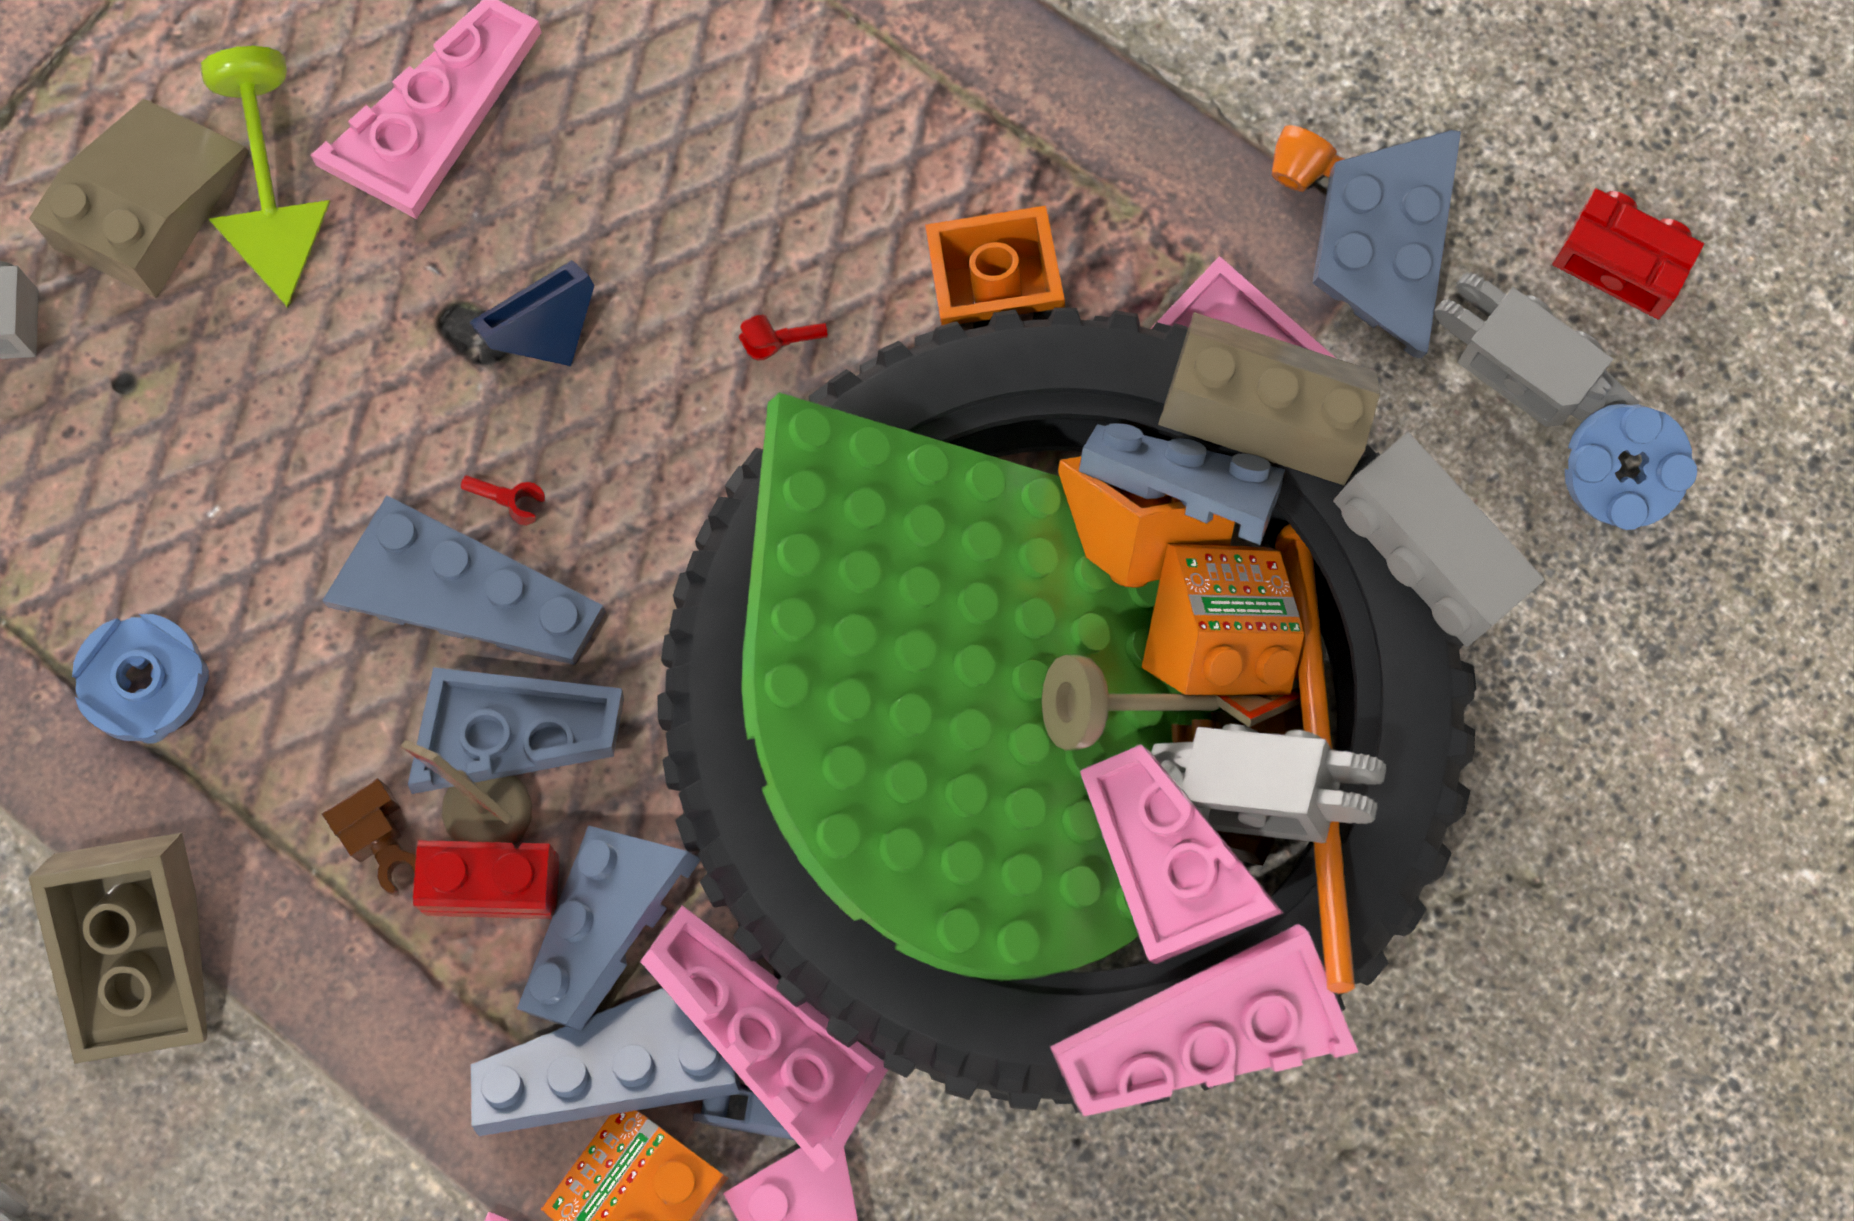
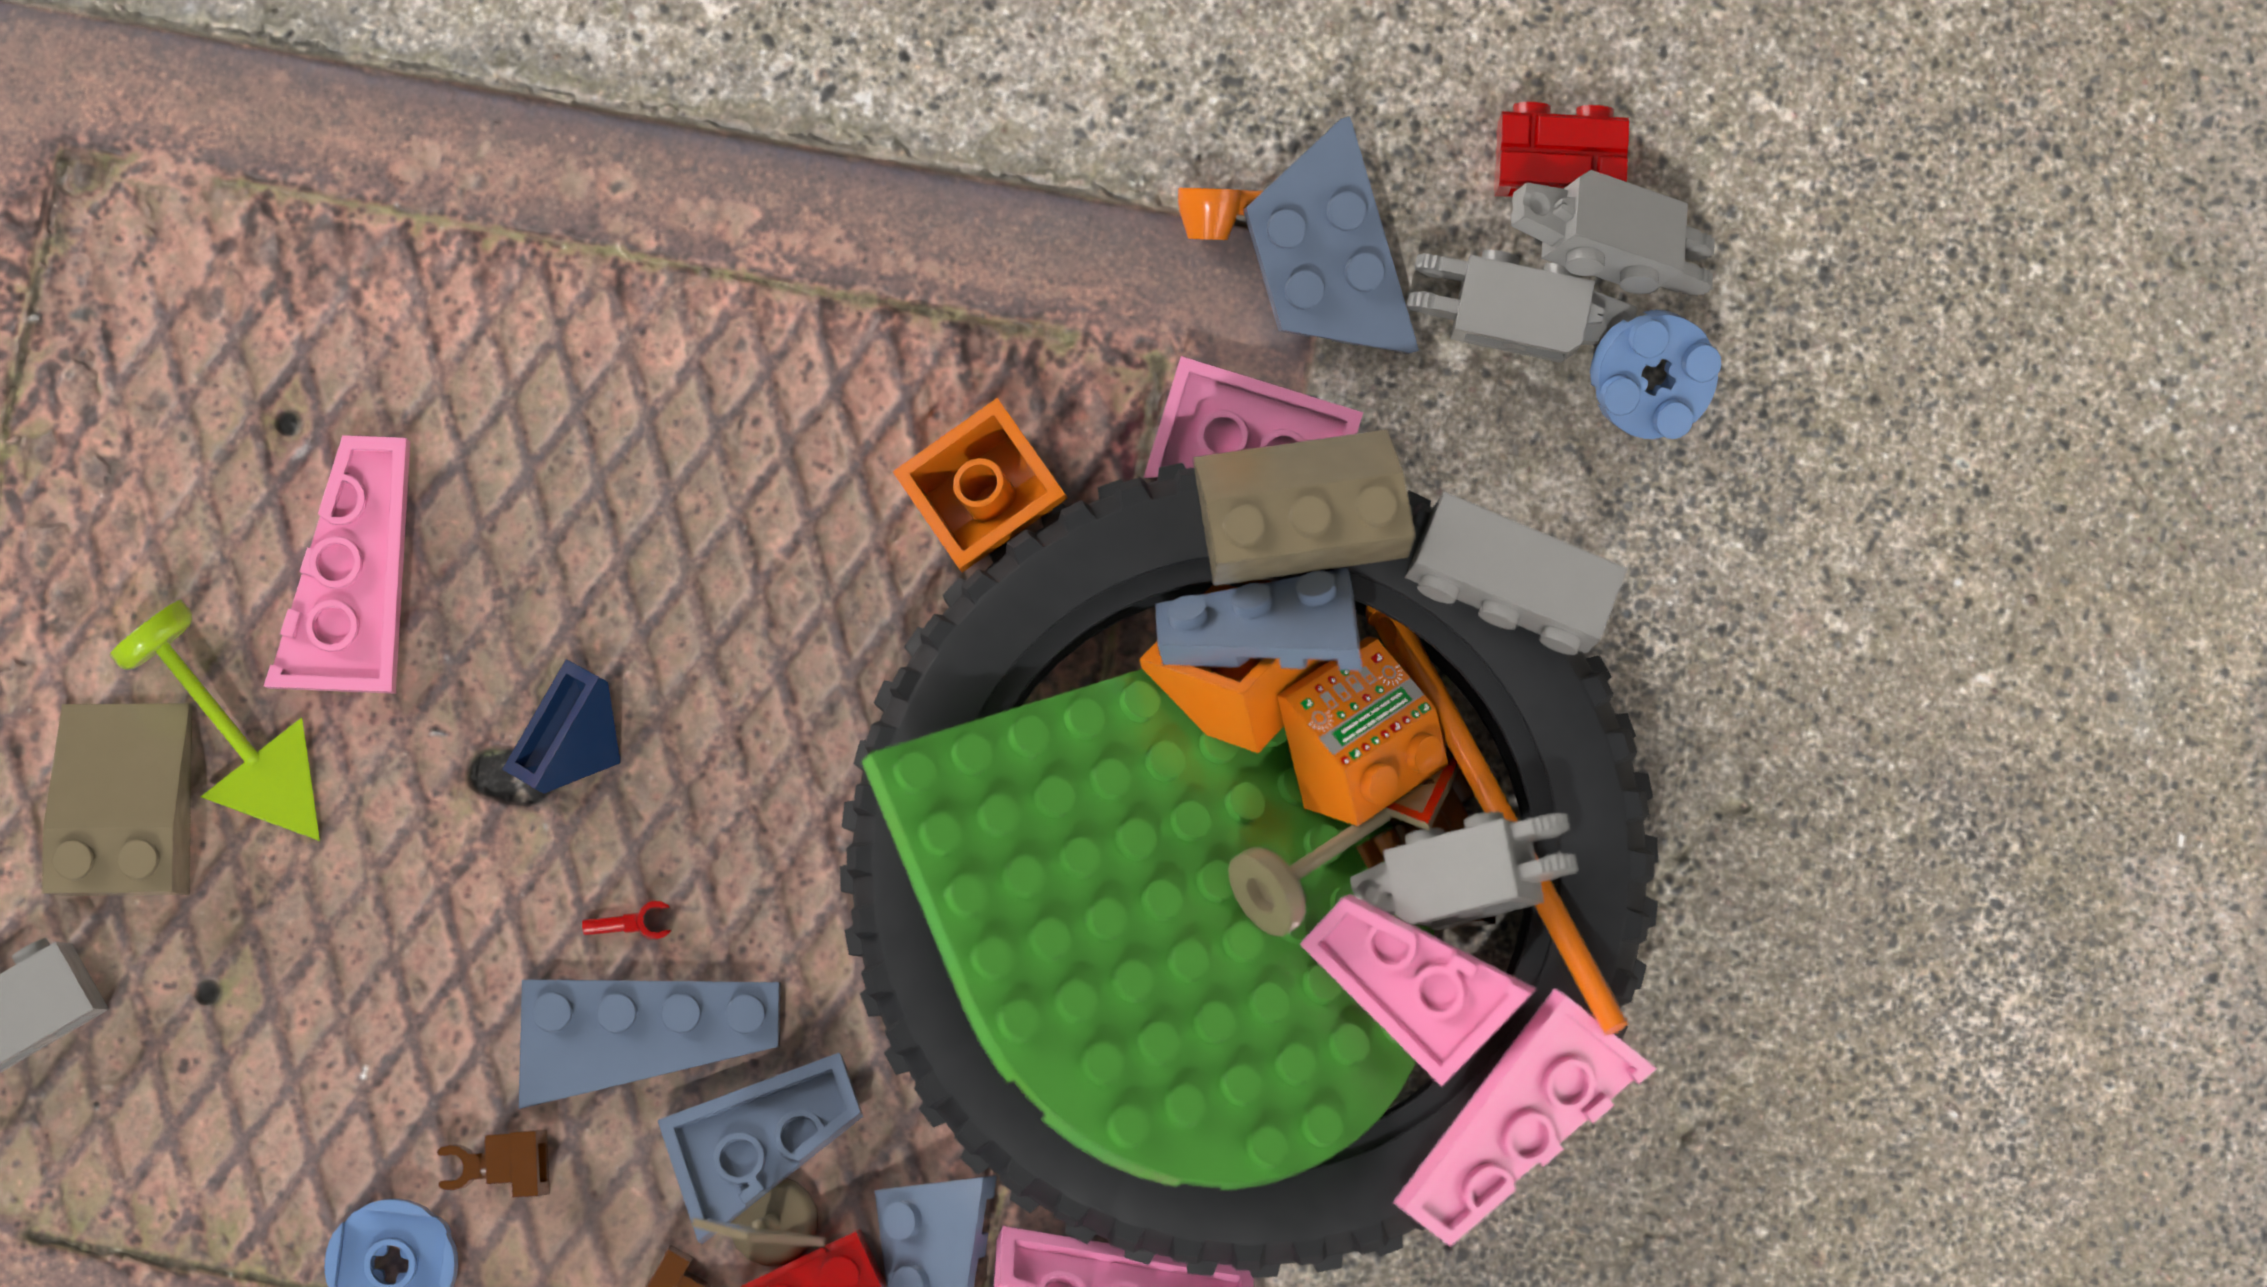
camera: 25 degrees left, 10 degrees up
(289, 637) = (508, 1158): none -> reddish brown piece
(763, 342) = (789, 650): red hand -> none
(1651, 329) = (1616, 233): none -> light grey hinge

